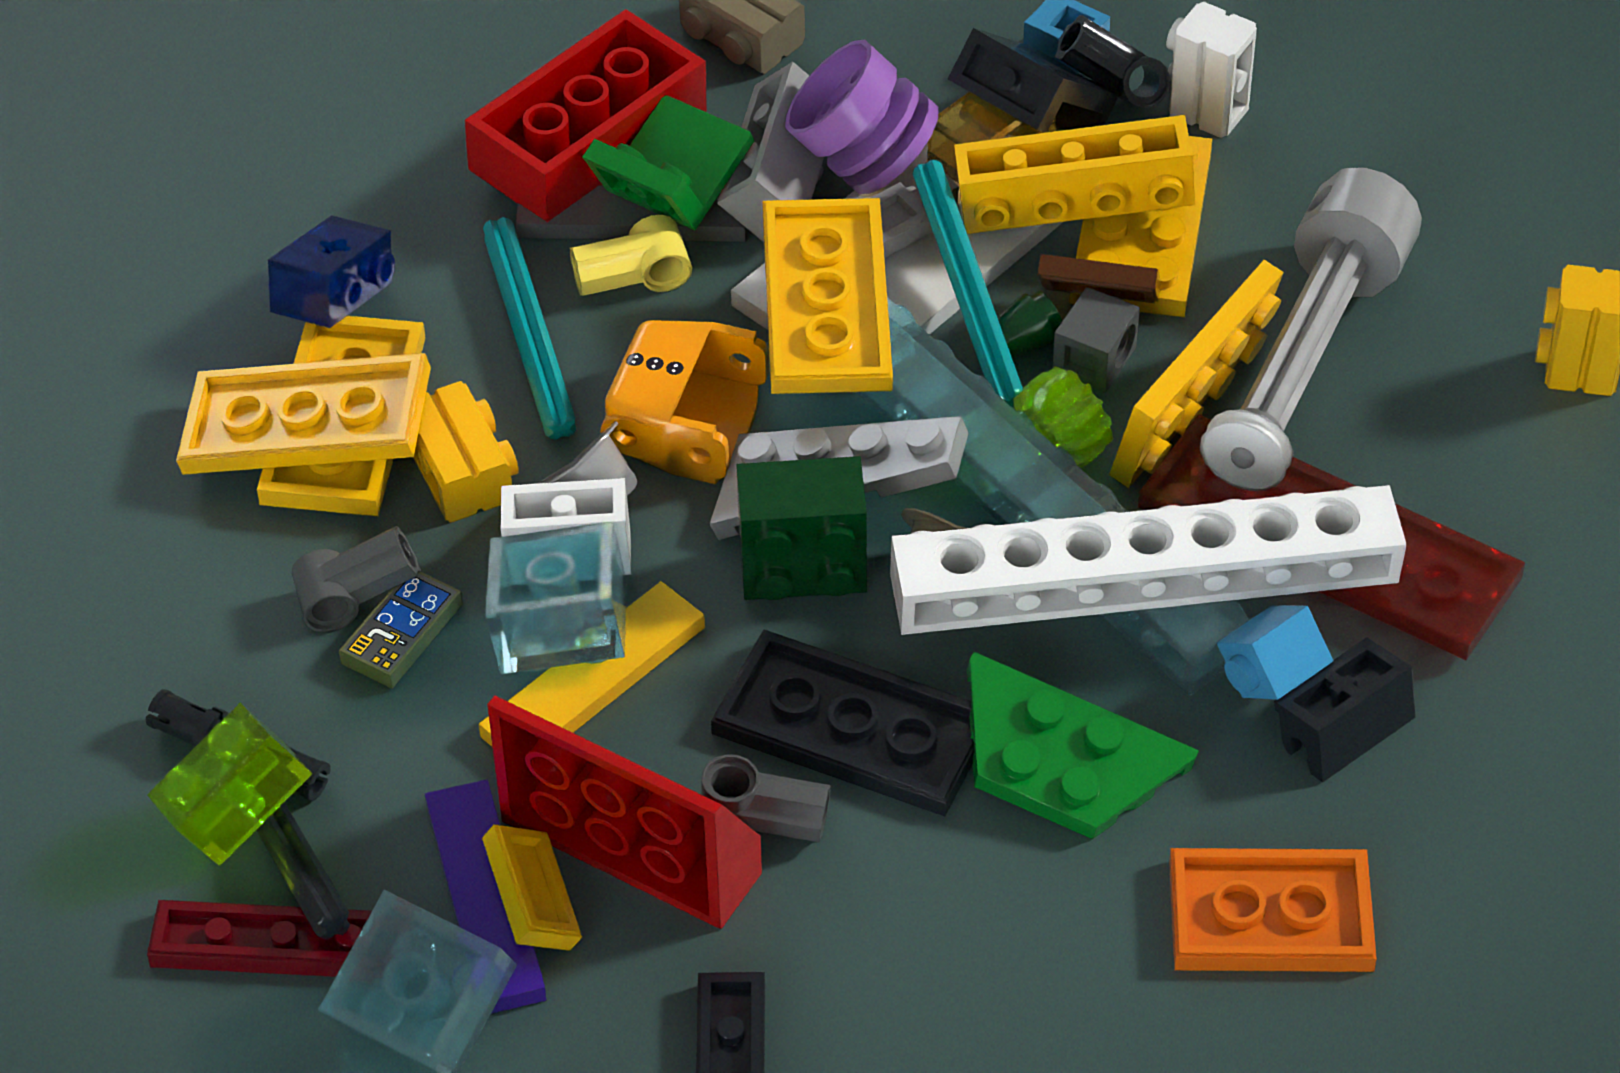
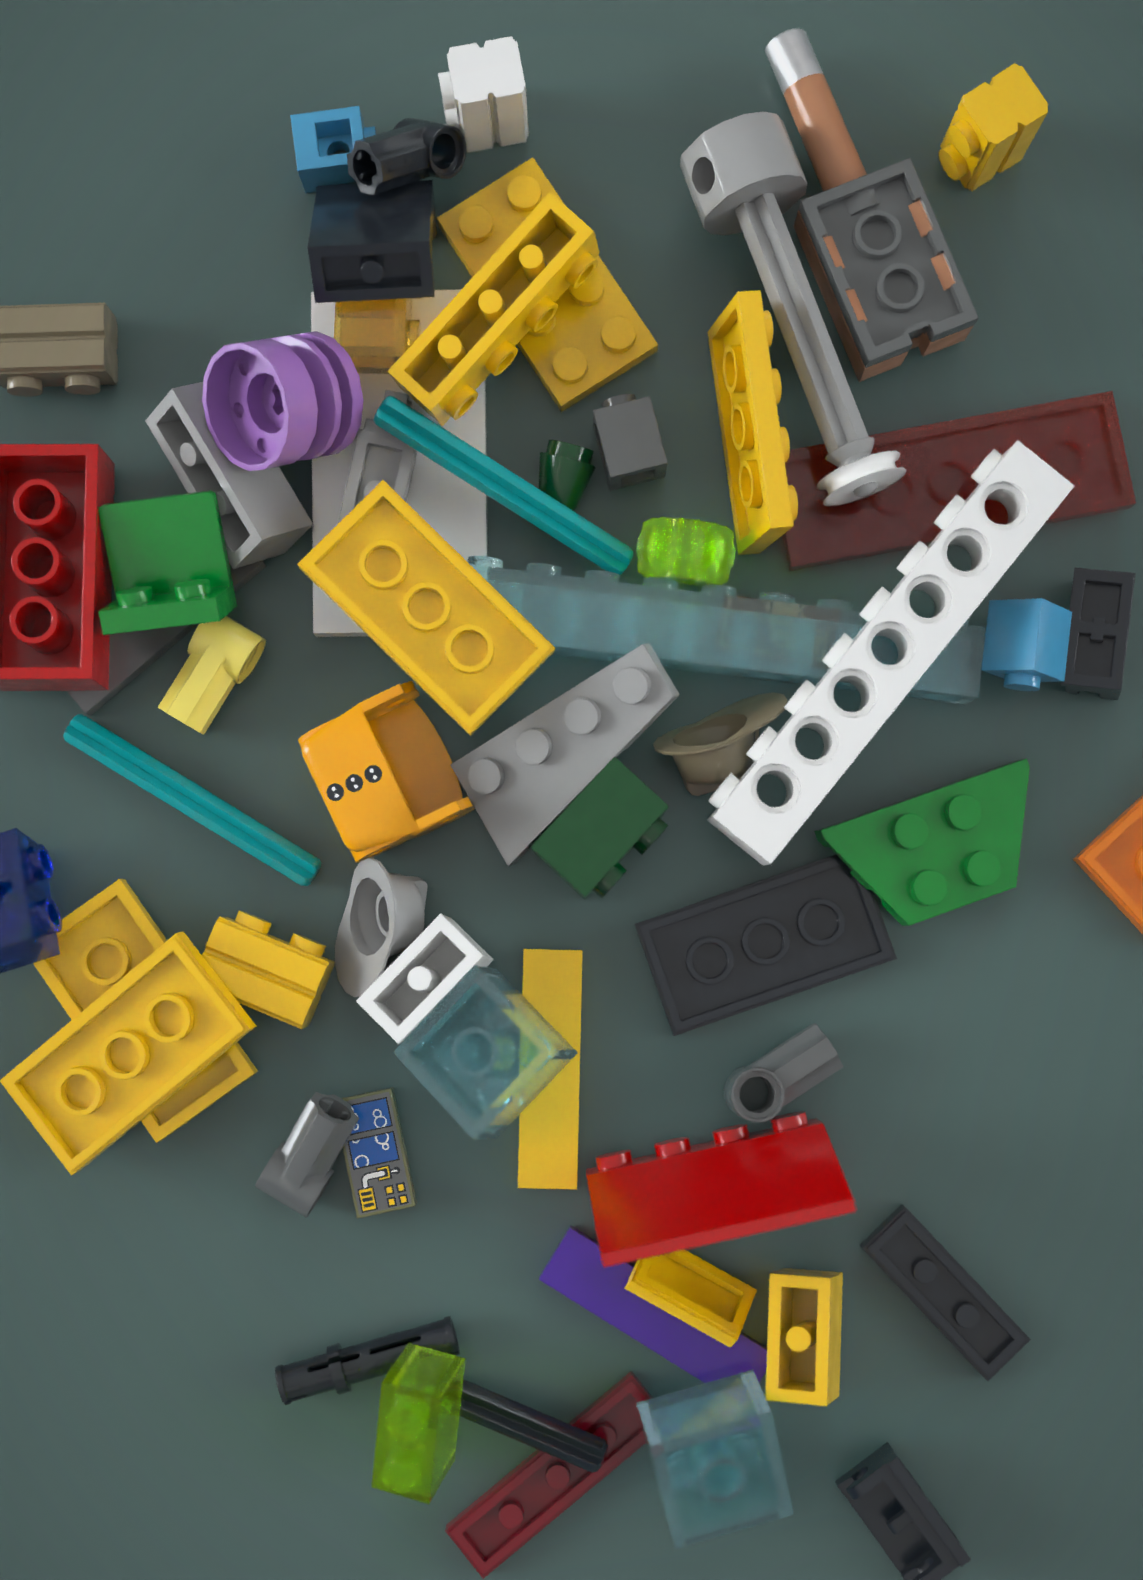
camera: 40 degrees left, 35 degrees up
(584, 971) = (804, 1336): none -> yellow brick
(1113, 279) = (593, 390): reddish brown tile -> none
(1419, 339) = (868, 234): none -> dark grey piece

